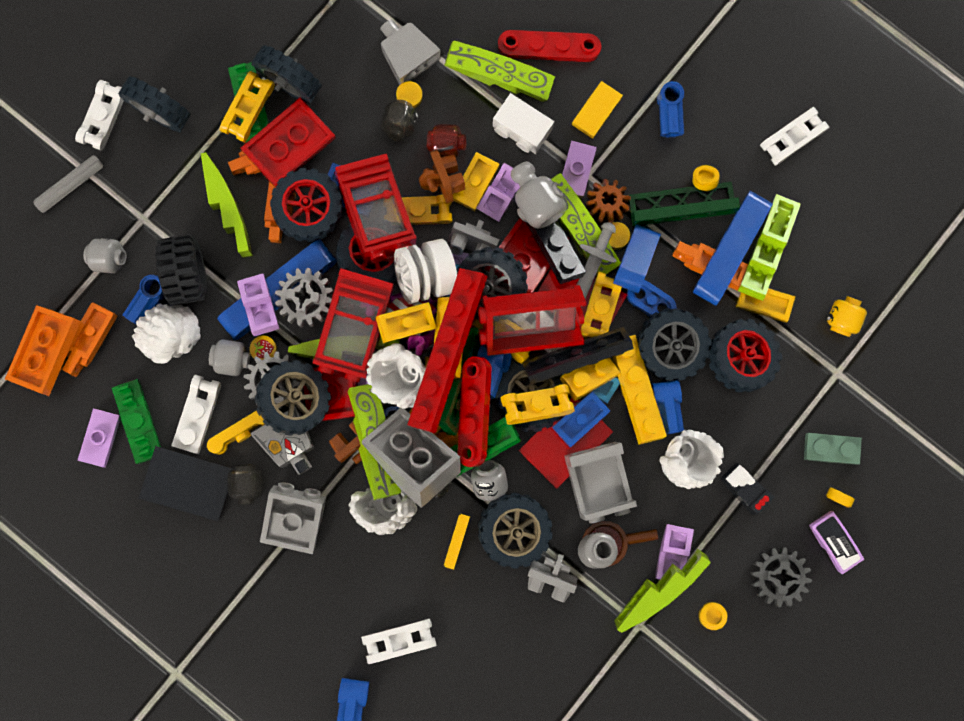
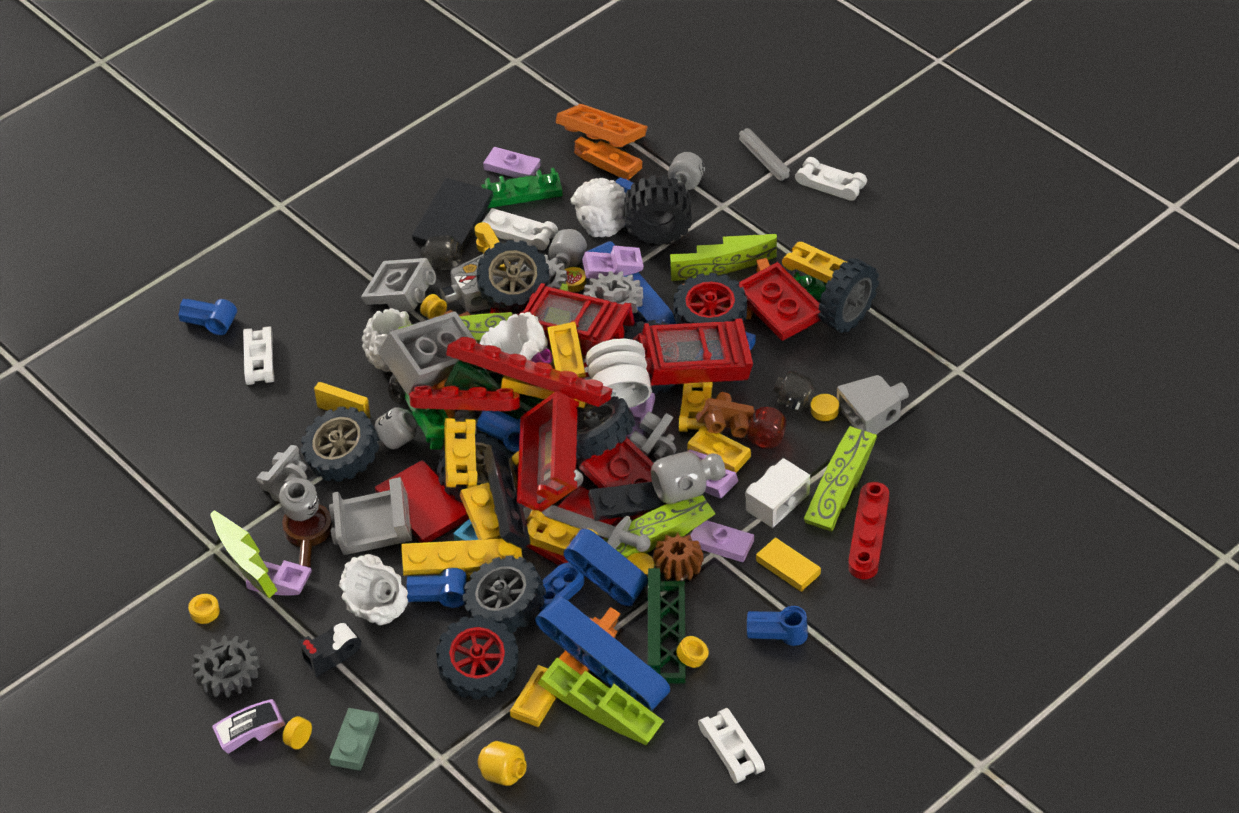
camera: 105 degrees right, 35 degrees down
(154, 104) = (828, 200): black wheel -> none
(320, 478) = (433, 306): none -> yellow bush
(585, 417) = (440, 505): blue plate -> none

